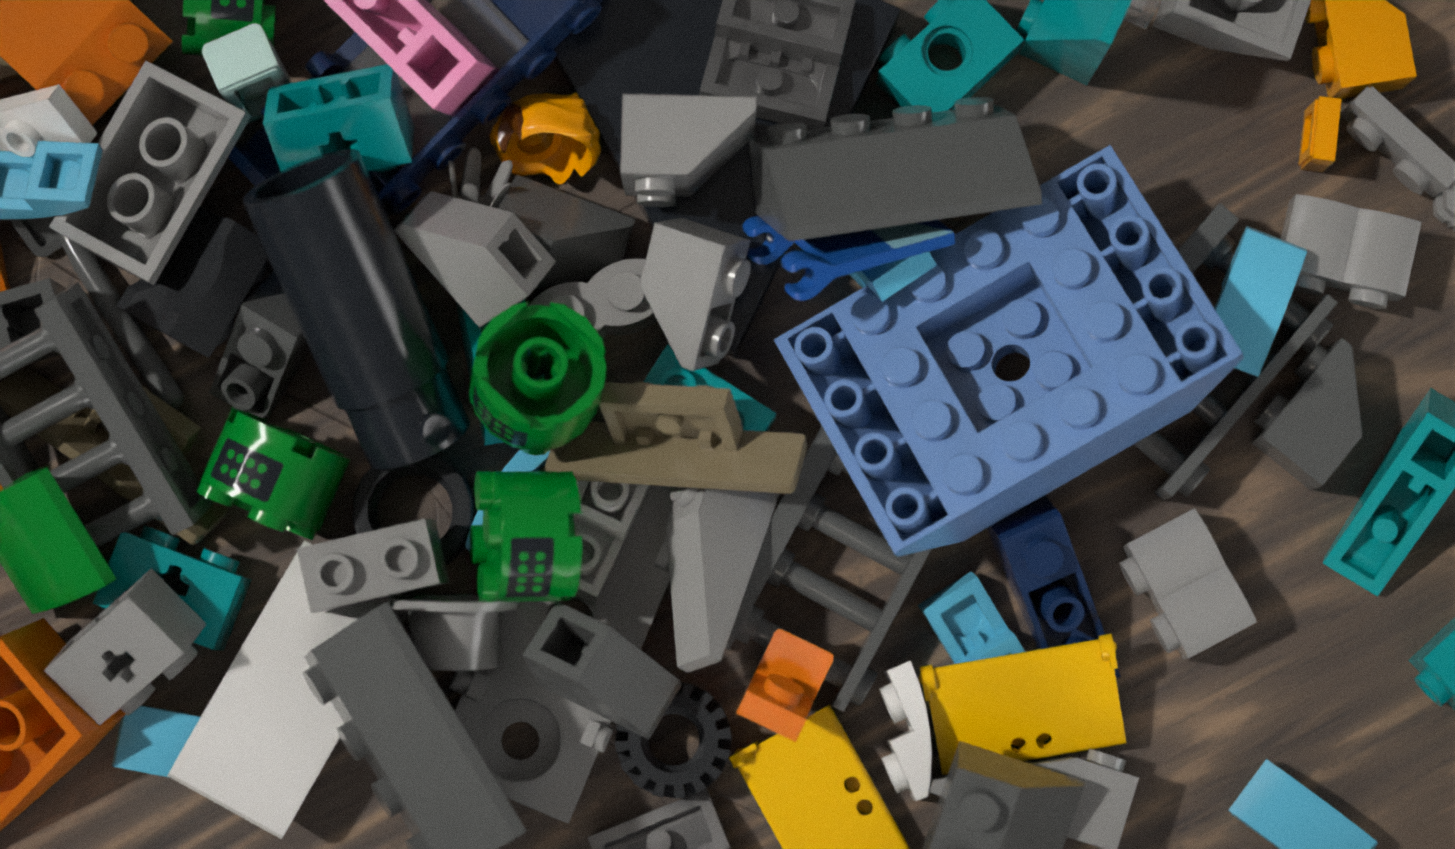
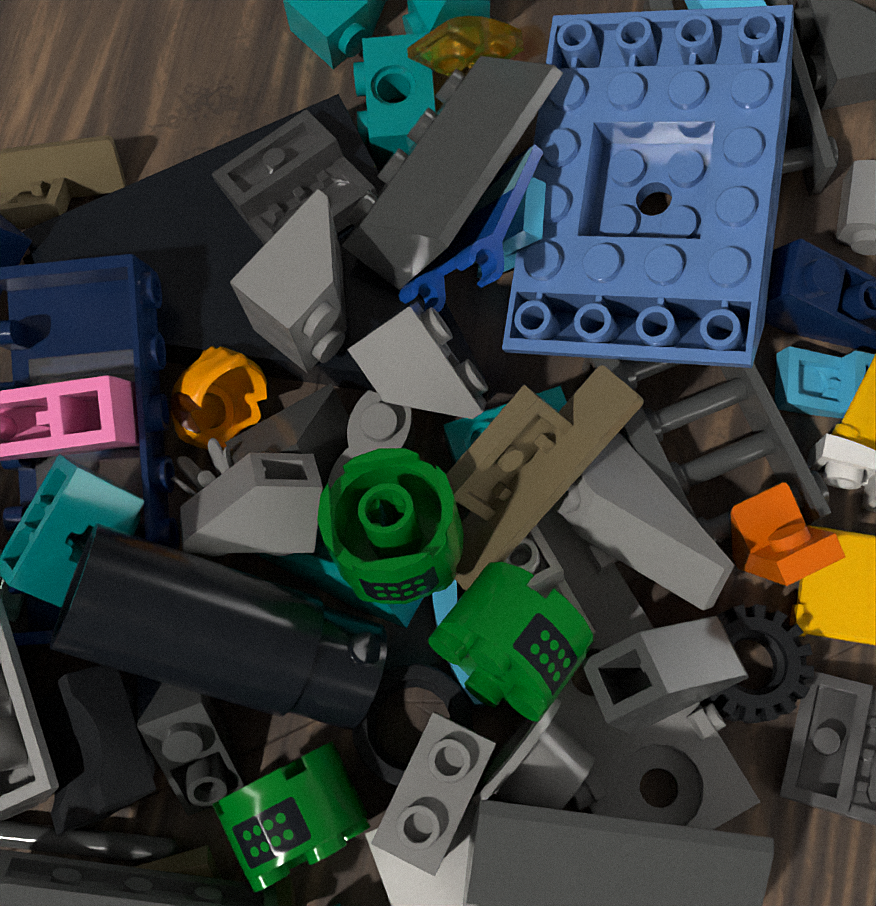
camera: 45 degrees left, 10 degrees down
(1019, 77) = (463, 40): none -> clear yellow slope

